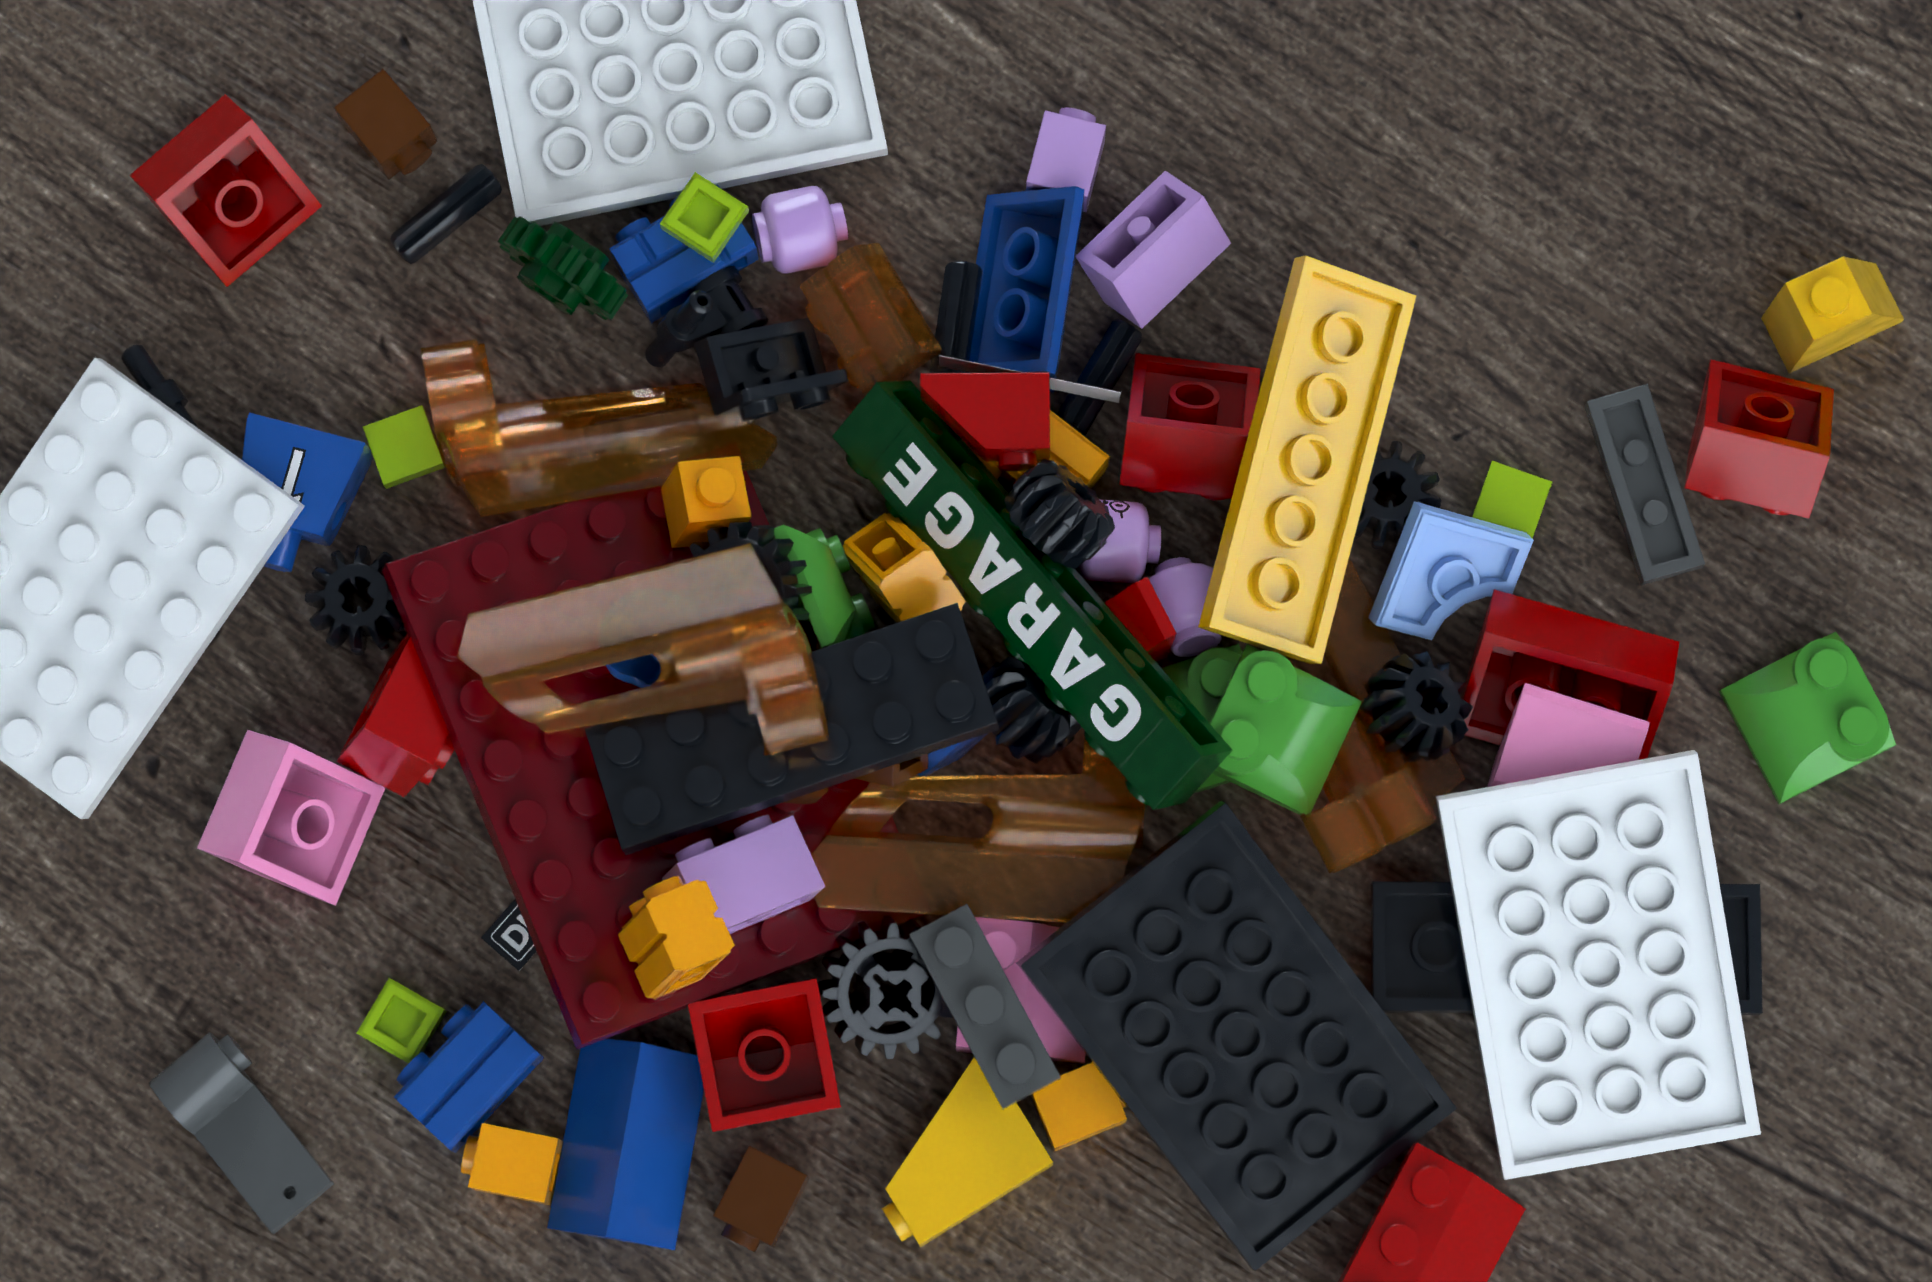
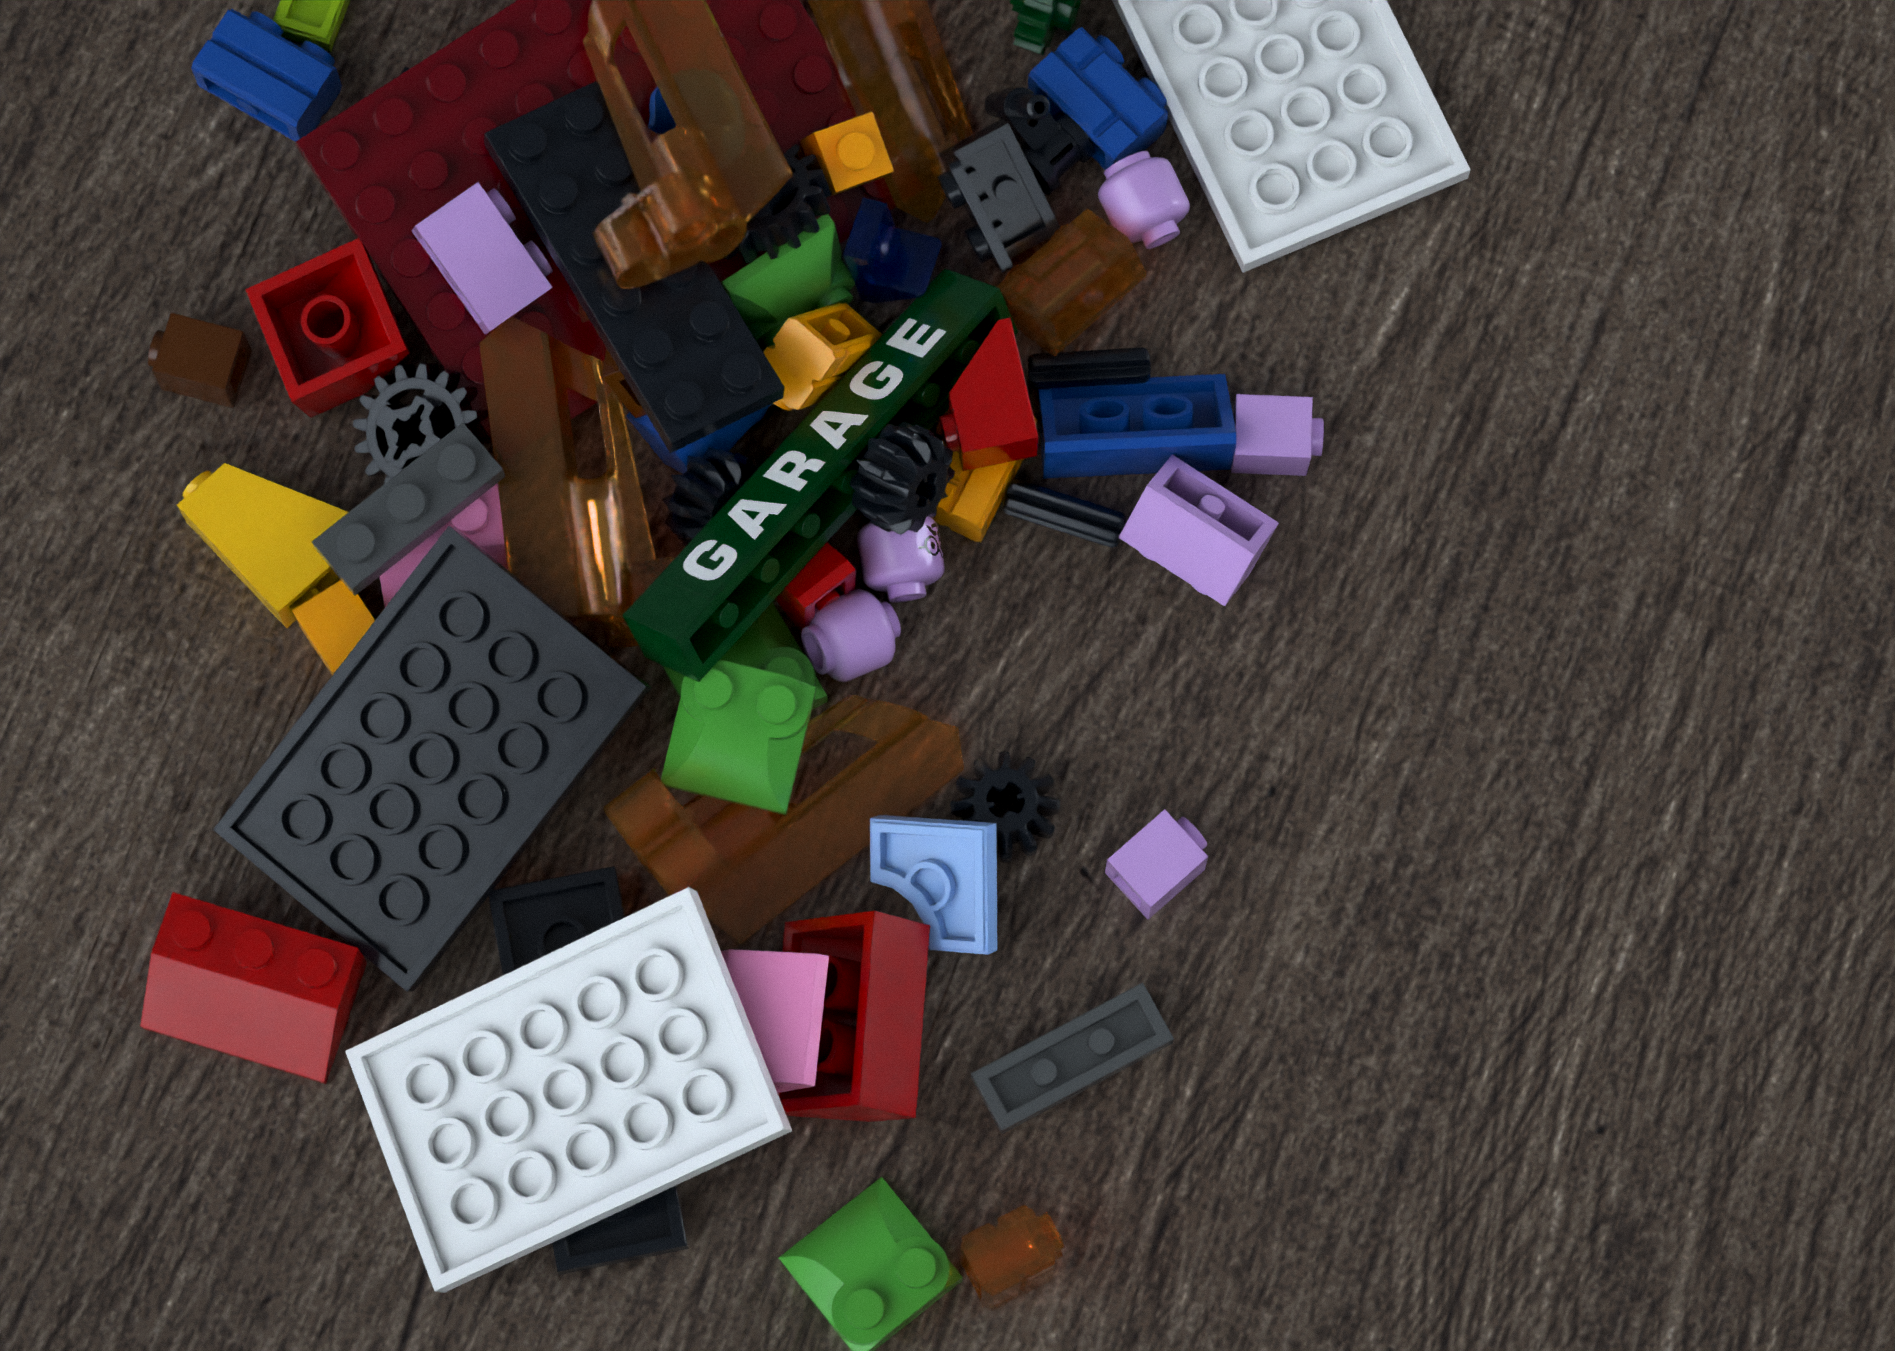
camera: 75 degrees right, 5 degrees down
(512, 1163) = (192, 133): light orange brick -> none
(628, 1143) = (225, 233): blue slope -> none
(674, 936) = (405, 190): light orange brick -> none
(704, 217) = (1129, 102): lime tile -> none
(816, 479) = (887, 259): none -> clear blue slope
(1055, 384) = (1040, 437): white sticker -> none
(1187, 425) = (1032, 604): red slope -> none
(1307, 460) = (1009, 705): yellow plate -> none
(1416, 707) = (792, 893): black gear -> none
(1471, 361) = (1158, 862): none -> lavender brick
(1512, 498) = (1027, 933): lime tile -> none
(1760, 439) = (1144, 1162): red slope -> none
(1829, 311) = (1291, 1208): yellow slope -> none
(1836, 577) = (1010, 1256): none -> clear orange brick

